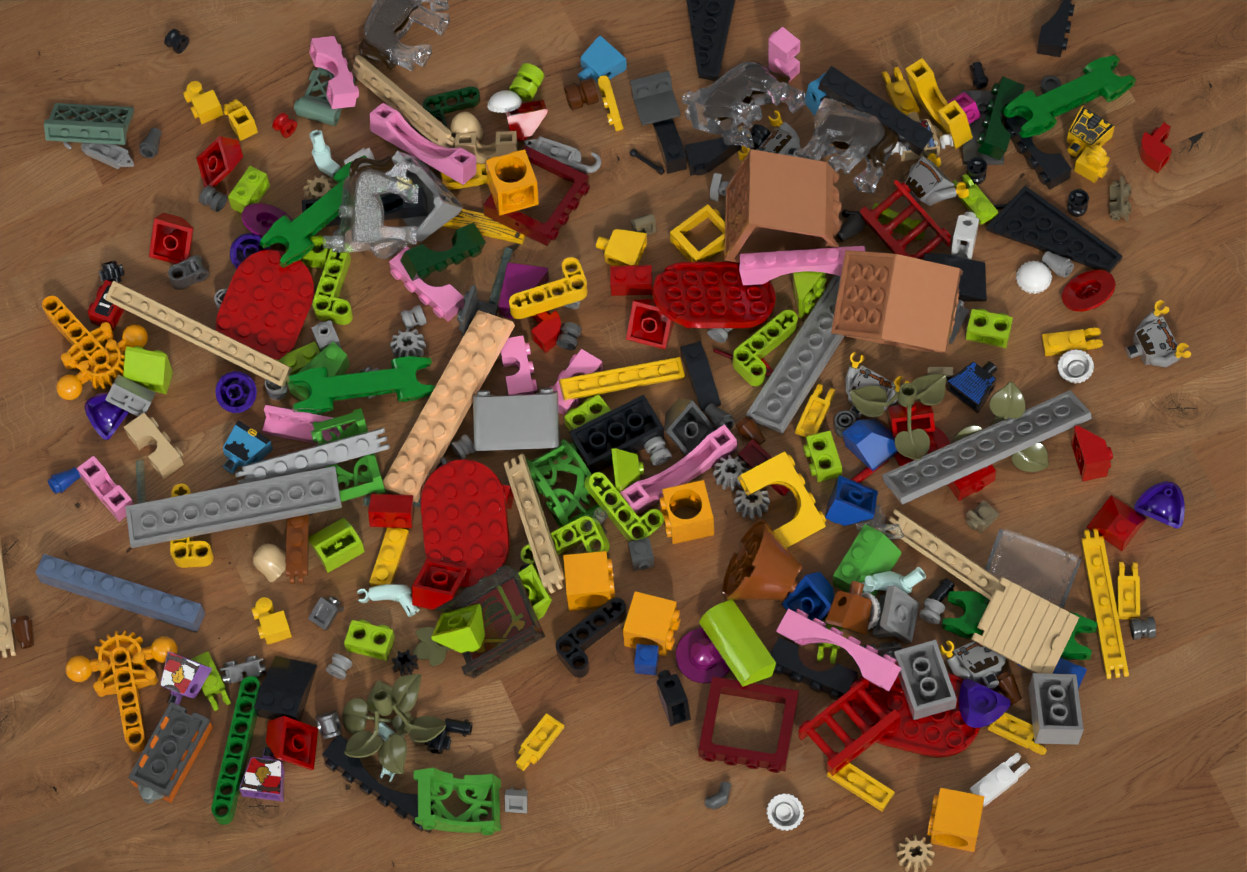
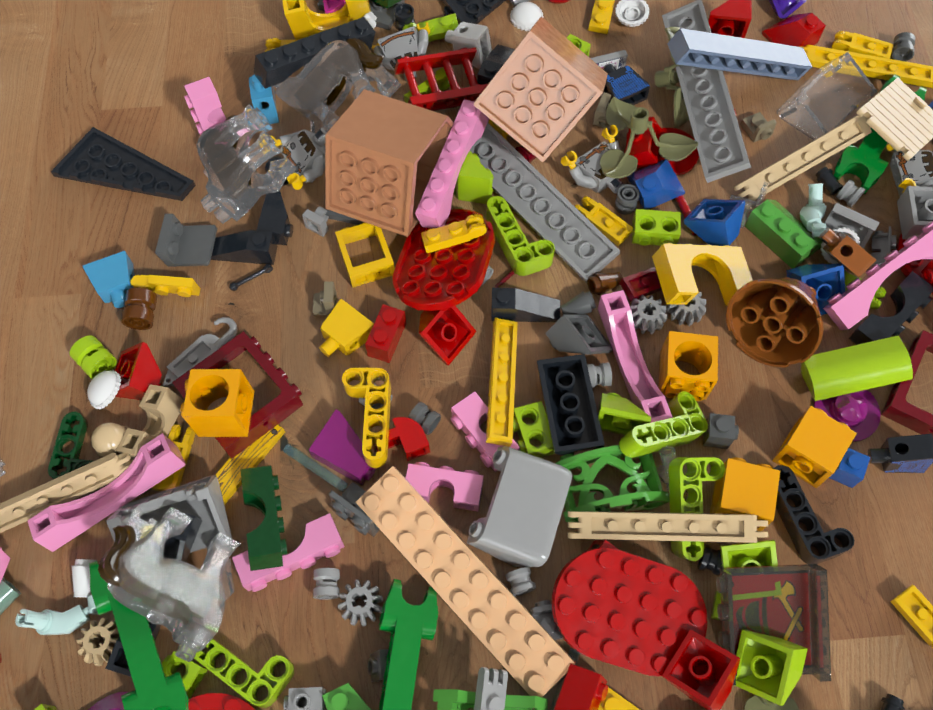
camera: 75 degrees left, 0 degrees up
(738, 292) = (454, 233): none -> yellow hinge
(990, 354) = (617, 59): none -> light grey tile
(1029, 464) = (738, 54): none -> sand blue brick

